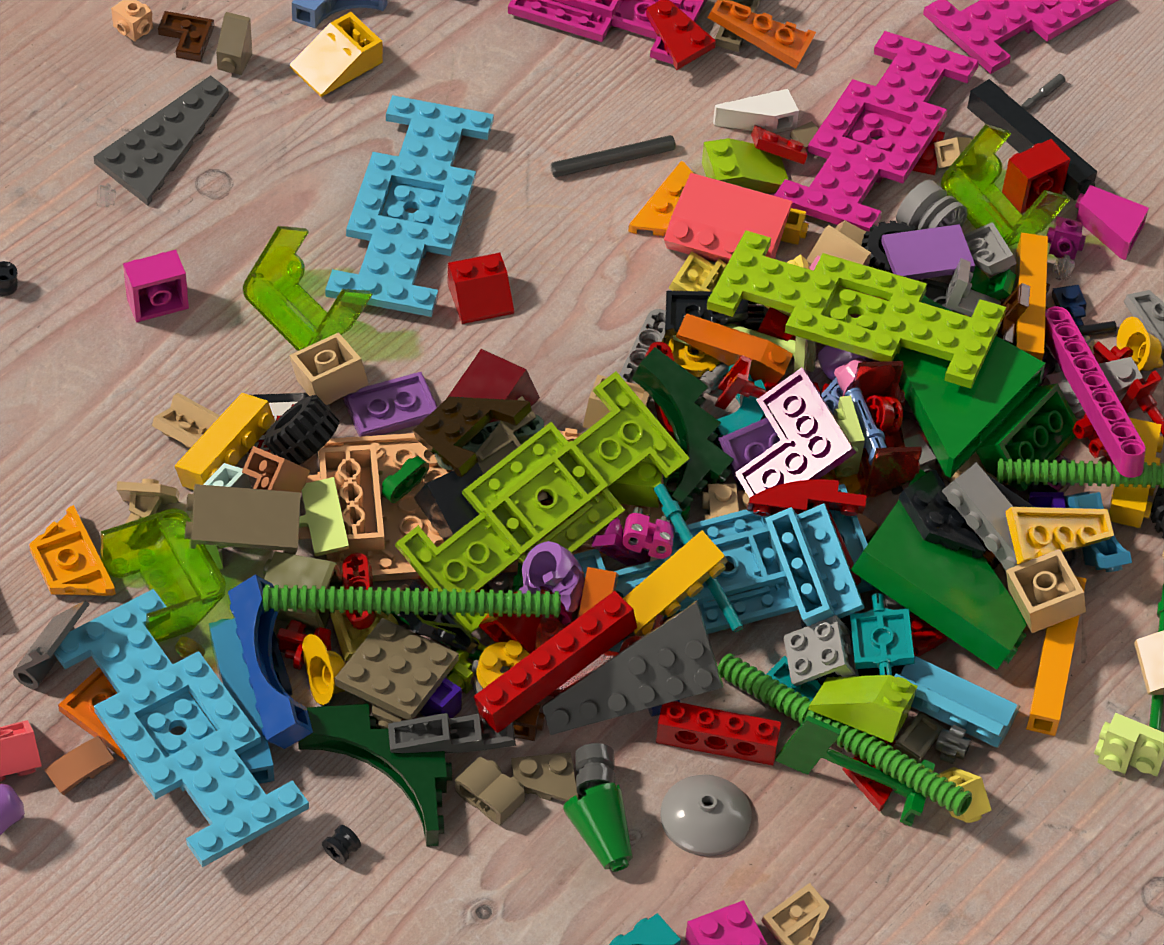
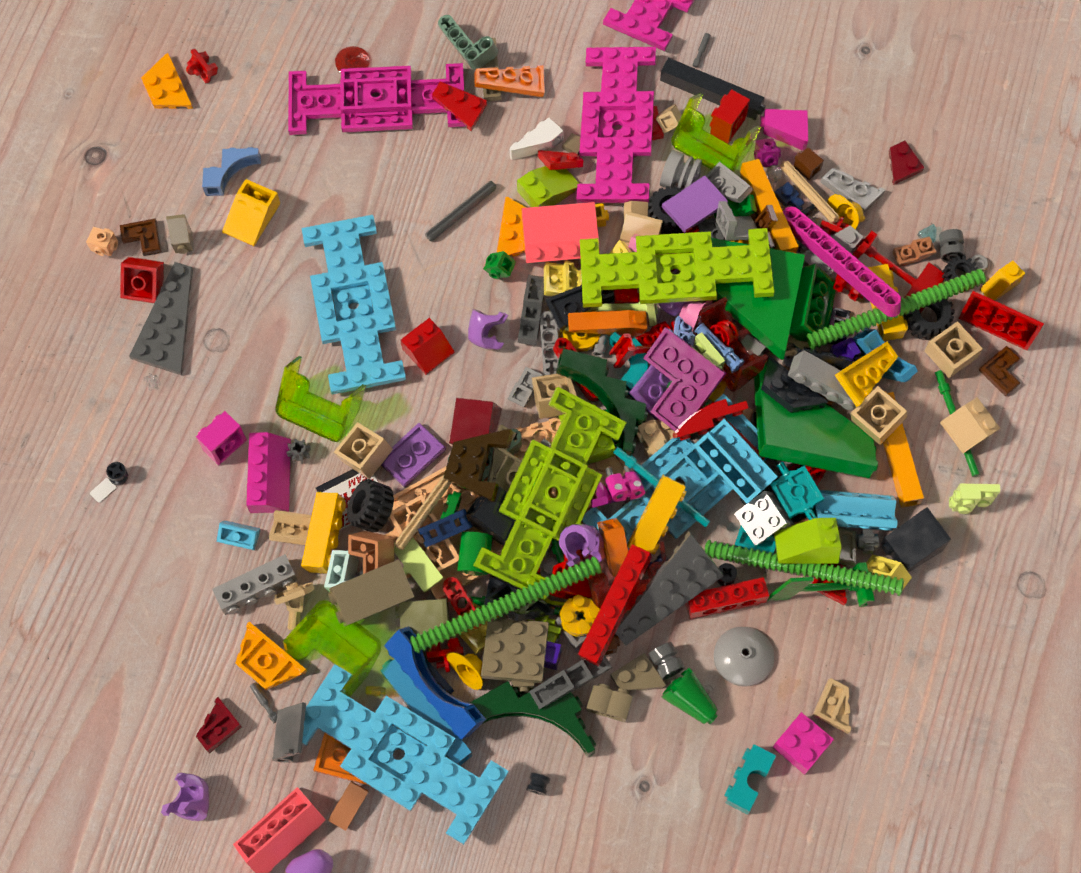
camera: 20 degrees left, 15 degrees up
(40, 603) = (263, 701): none -> dark grey piece
(102, 466) = (254, 585): none -> light grey brick
(115, 407) = (238, 534): none -> medium azure slope
(156, 77) = (141, 279): none -> red slope
(193, 350) = (268, 473): none -> dark pink slope
(246, 341) = (293, 451): none -> dark grey gear
(363, 462) = (422, 514): none -> tan axle
(383, 488) = (445, 528): none -> dark blue plate
(404, 521) = (469, 549): none -> green brick
(567, 290) = (480, 326): none -> medium lavender piece
(577, 389) = (523, 389): none -> light grey slope
(627, 231) = (499, 265): none -> green brick
(647, 296) = (531, 310): none -> dark grey slope
(736, 696) = (729, 577): none -> black wheel
(1021, 768) = (916, 540): none -> black slope
(1100, 304) = (809, 192): none -> tan axle
(1118, 273) = (808, 163): none -> reddish brown brick

